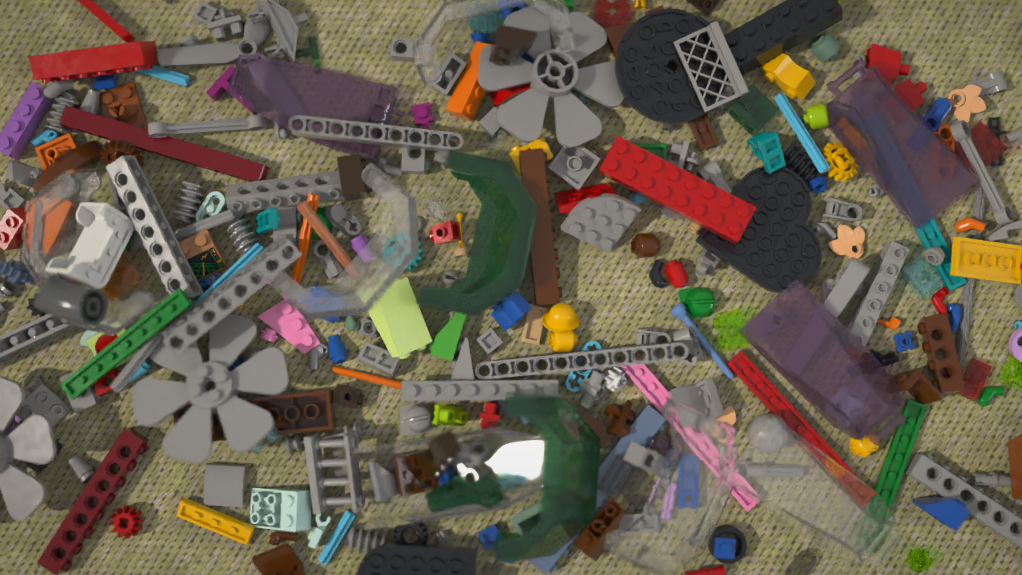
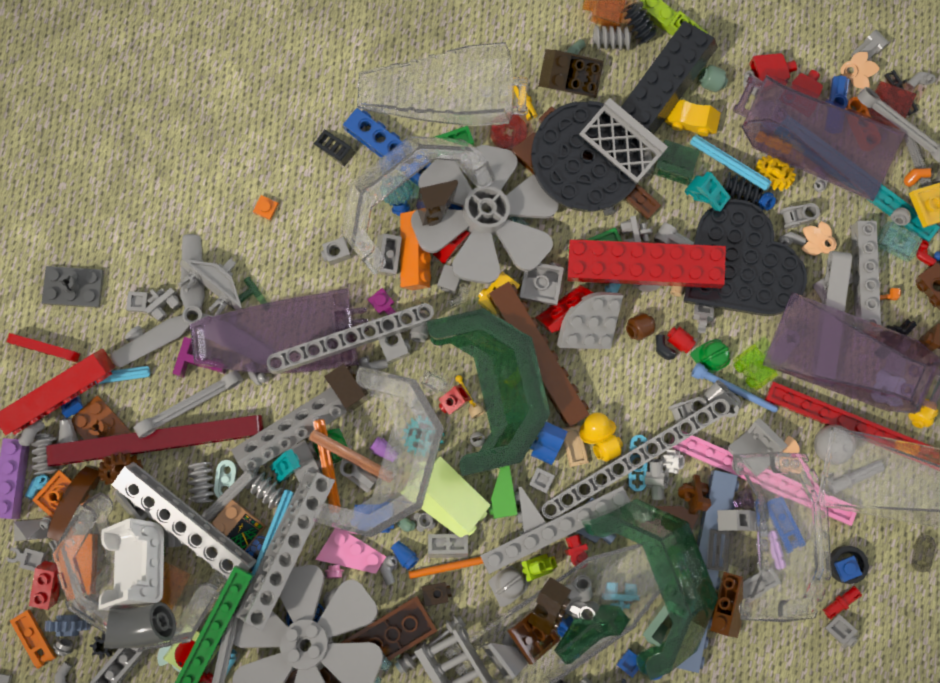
camera: 25 degrees left, 5 degrees down
(343, 220) = (354, 432): light grey piece -> none
(816, 116) = (736, 141): lime head -> none
(900, 346) = (911, 311): blue plate -> none

